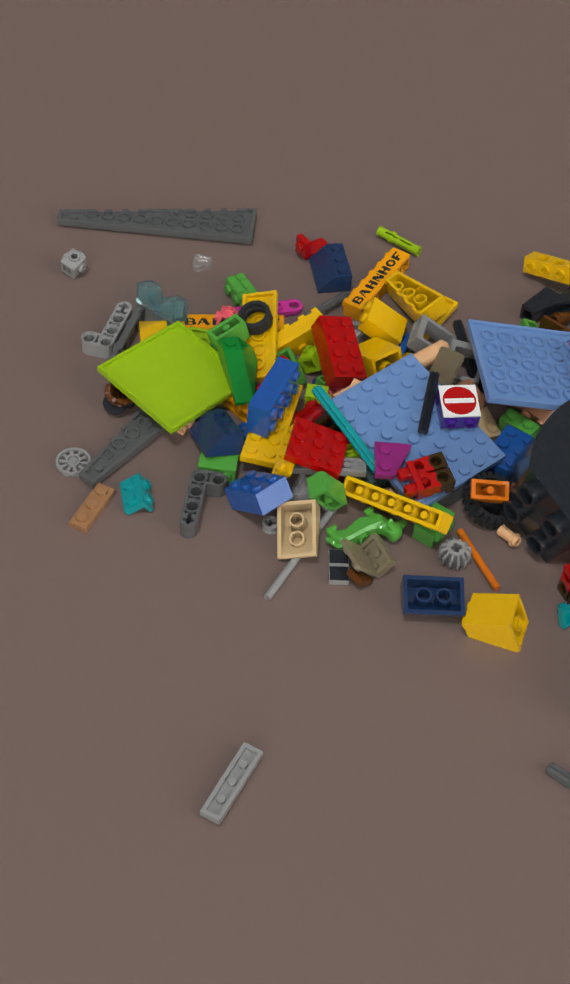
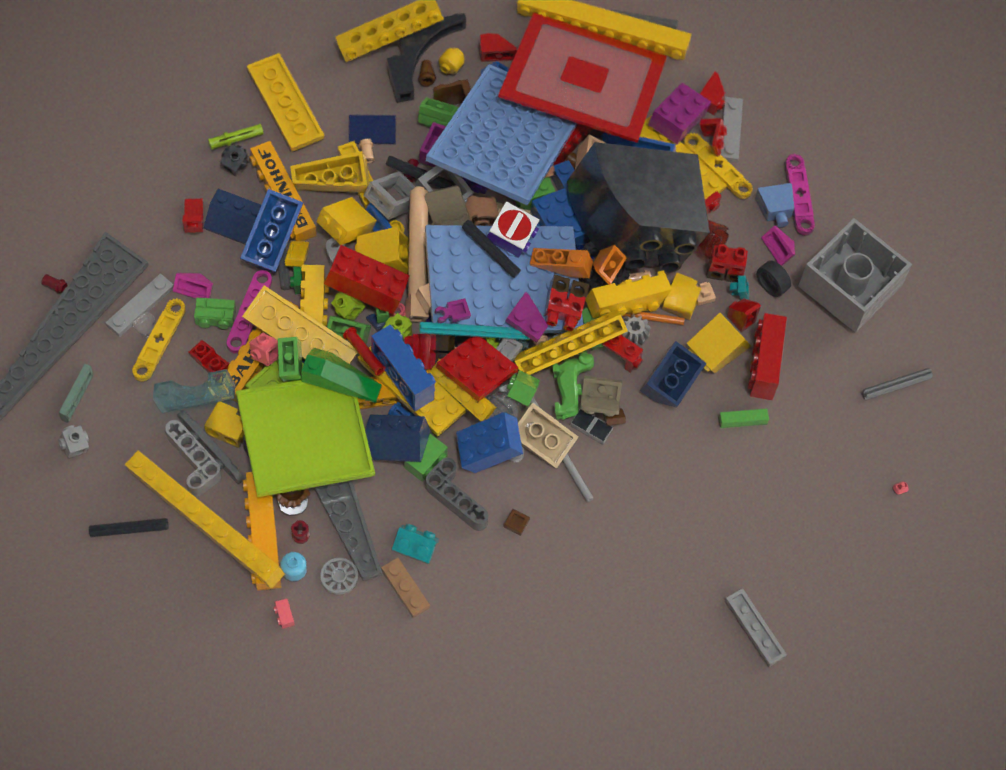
camera: 60 degrees left, 15 degrees up
(16, 442) = (285, 616): none -> coral piece
(28, 325) = (128, 527): none -> black axle
(57, 355) = (205, 519): none -> yellow brick
(58, 426) = (293, 566): none -> medium azure head
(67, 402) = (262, 526): none -> light orange brick
(92, 419) = (300, 538): none -> dark red bush
(115, 249) = (76, 393): none -> sand green tile
(186, 273) = (153, 351): none -> yellow piece
(194, 202) = (54, 283): none -> dark red pin
(202, 303) = (208, 358): none -> red slope
(207, 555) = (516, 522): none -> reddish brown tile
(217, 253) = (140, 304): none -> light grey plate
(253, 307) = (285, 309): black tyre -> none
(255, 271) = (192, 285): none -> dark pink slope
(330, 310) = (297, 253): none -> yellow tile
(332, 283) = (271, 231): none -> blue brick
(349, 403) = (455, 310): none -> magenta plate
(377, 245) = (234, 165): none -> black brick
(426, 552) = (627, 350): none -> red bracket
(440, 677) = (743, 418): none -> bright green piece
(453, 254) = (285, 102): none -> yellow plate
(461, 313) = (366, 147): none -> light nougat pin
(463, 458) = (563, 261): none -> orange slope
(476, 847) = (900, 487): none -> coral rock
(479, 528) = (629, 296): none -> yellow wedge
(480, 309) = (377, 128): none -> clear blue piece
(514, 660) = (767, 356): none -> red brick
(516, 572) = (682, 297): none -> yellow piece
(538, 590) = (706, 294): none -> light nougat tile
(541, 626) = (743, 313): none -> red slope

